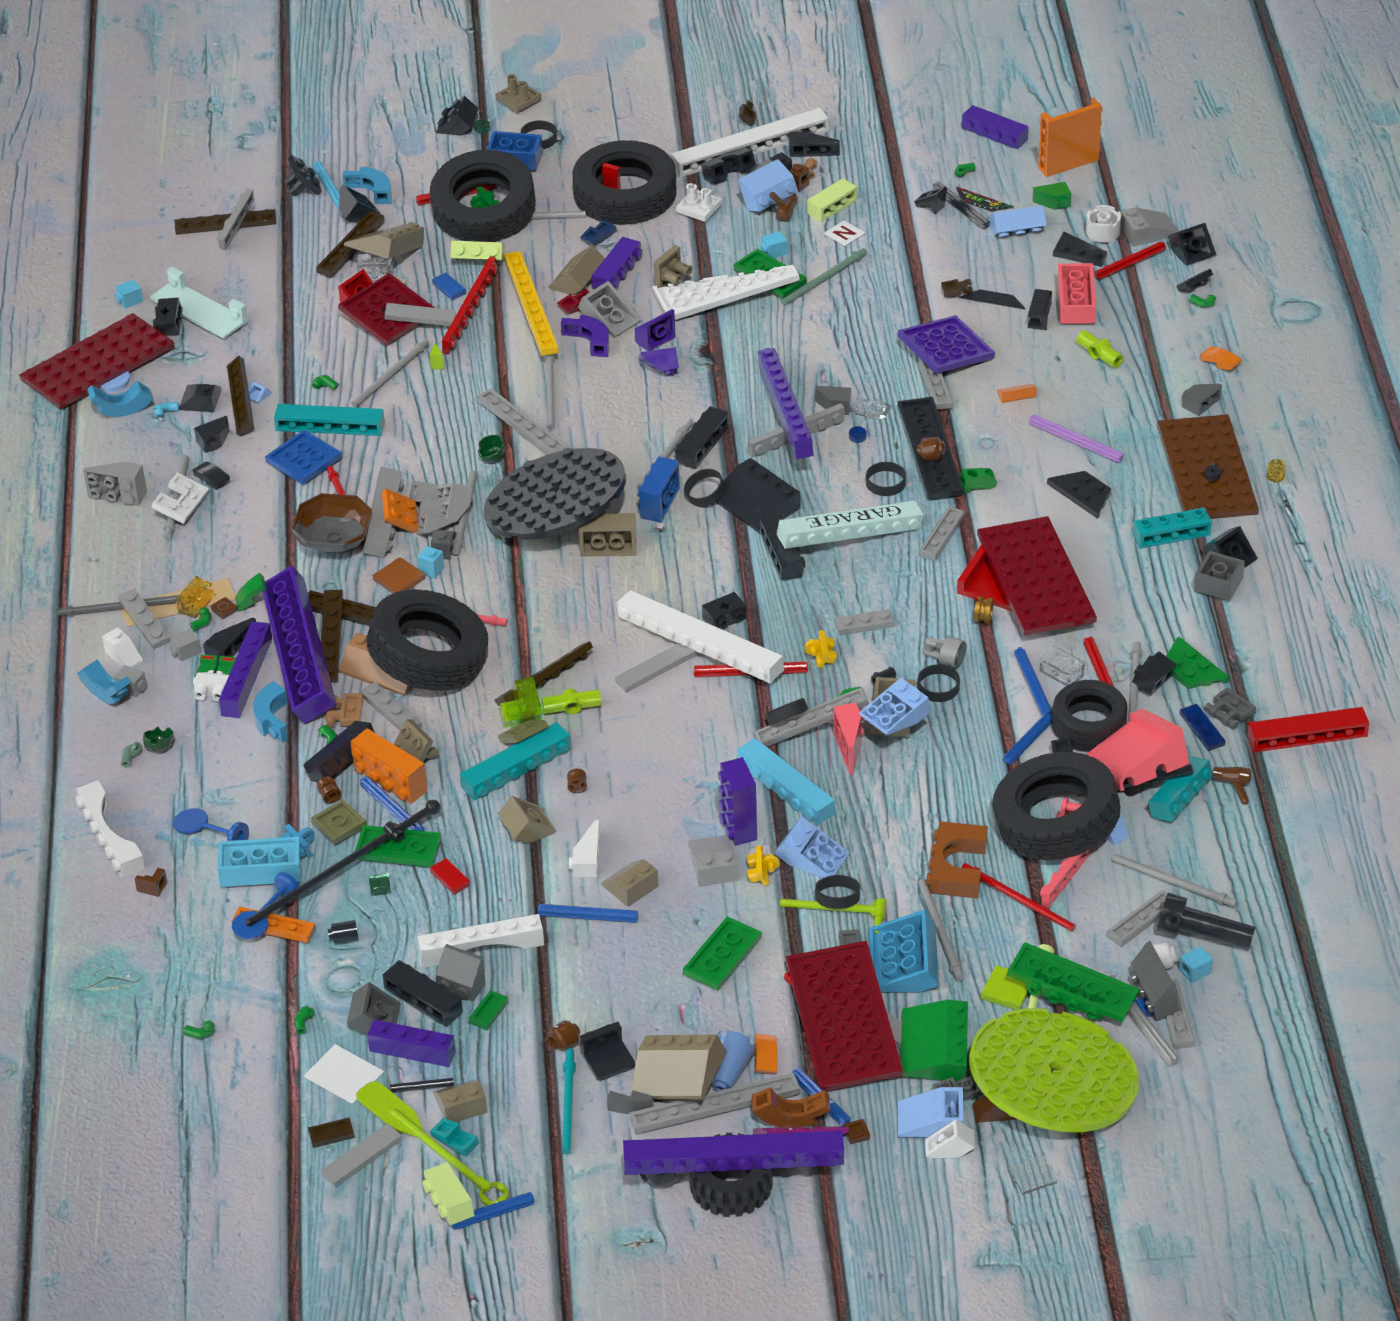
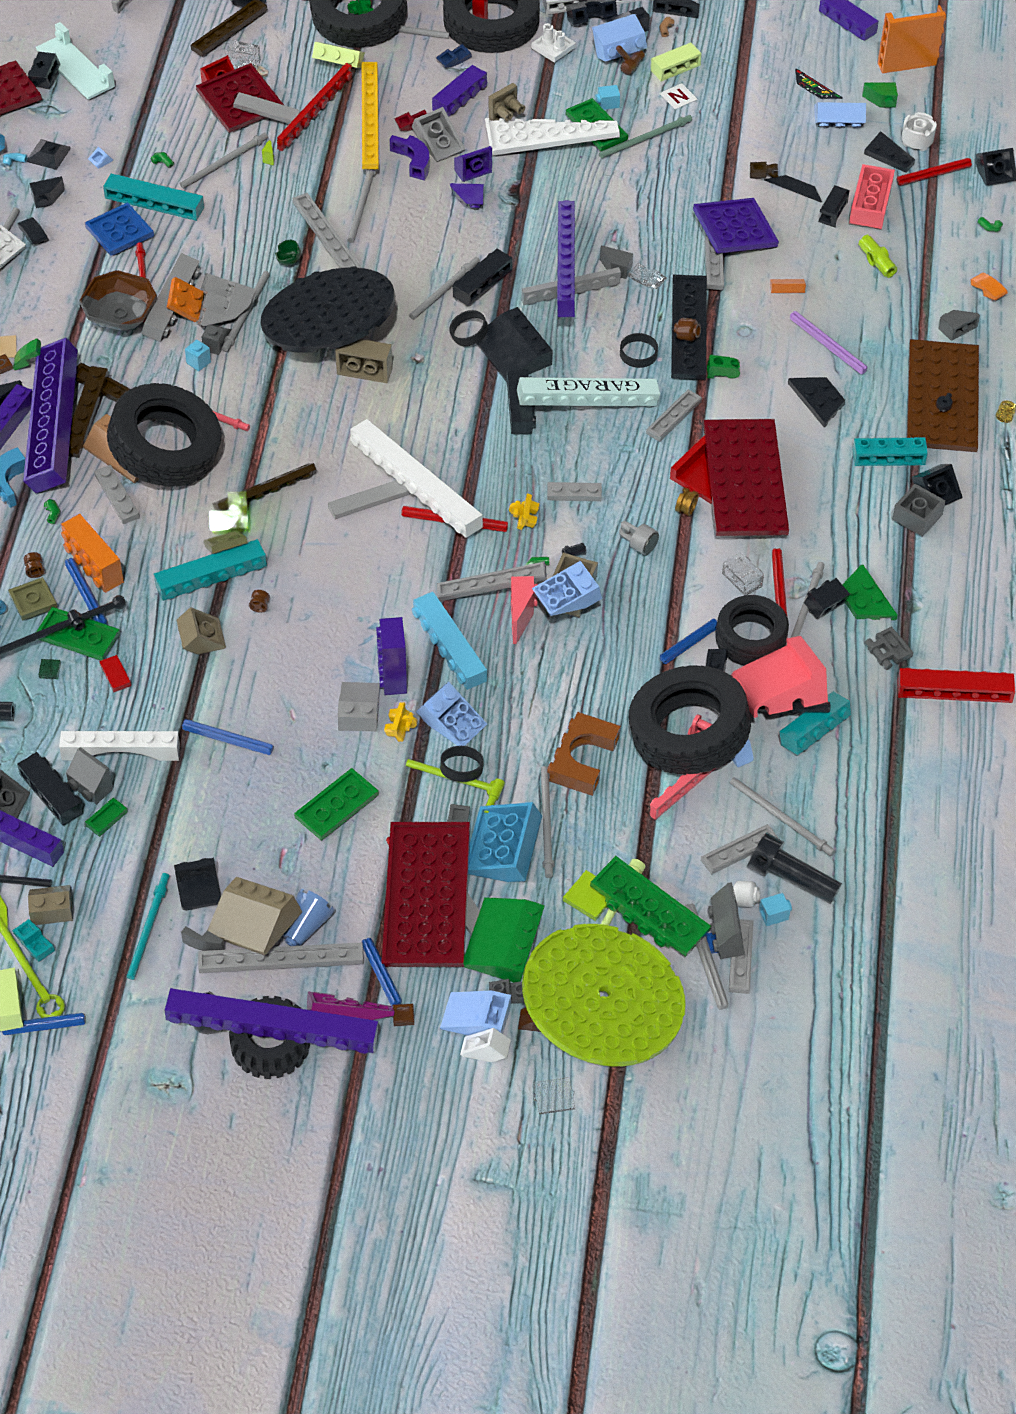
camera: 10 degrees right, 10 degrees up
(128, 294) = (17, 41): medium azure brick -> none
(240, 396) = (82, 158): dark brown plate -> none
(336, 753) = (48, 532): black brick -> none
(350, 709) = (79, 489): medium nougat plate -> none
(390, 241) = (261, 32): dark tan slope -> none
(398, 576) = (166, 363): dark orange tile -> none
(415, 741) = (122, 537): dark tan plate -> none
(448, 286) = (303, 84): blue tile -> none
(564, 1035) = (163, 859): reddish brown head -> none
(571, 701) = (280, 519): lime piece -> none
(578, 271) = (422, 91): dark tan slope -> none
(586, 854) = (245, 675): white slope -> none
(632, 882) = (277, 714): dark tan slope -> none
(659, 489) = (425, 322): blue brick -> none
(724, 611) = (447, 456): black brick -> none
(765, 1054) = (343, 916): orange slope -> none
(786, 711) = (470, 570): black tyre -> none
(789, 1113) = (344, 983): dark orange arch -> none
(801, 176) = (653, 33): reddish brown brick -> none
(857, 434) = (627, 300): clear blue tile -> none
(934, 198) = (770, 78): black slope -> none
(939, 669) = (623, 582): black tyre -> none
(962, 169) = (805, 52): green arm -> none
(964, 207) = (793, 87): black axle -> none
(1024, 900) = (631, 804): red bar -> none
(1032, 681) = (711, 582): blue axle -> none
(1145, 226) = (959, 139): light grey slope -> none
(1200, 278) = (995, 201): black plate -> none
(1202, 727) = (857, 662): clear blue tile -> none
(1236, 775) = (873, 720): reddish brown piece -> none

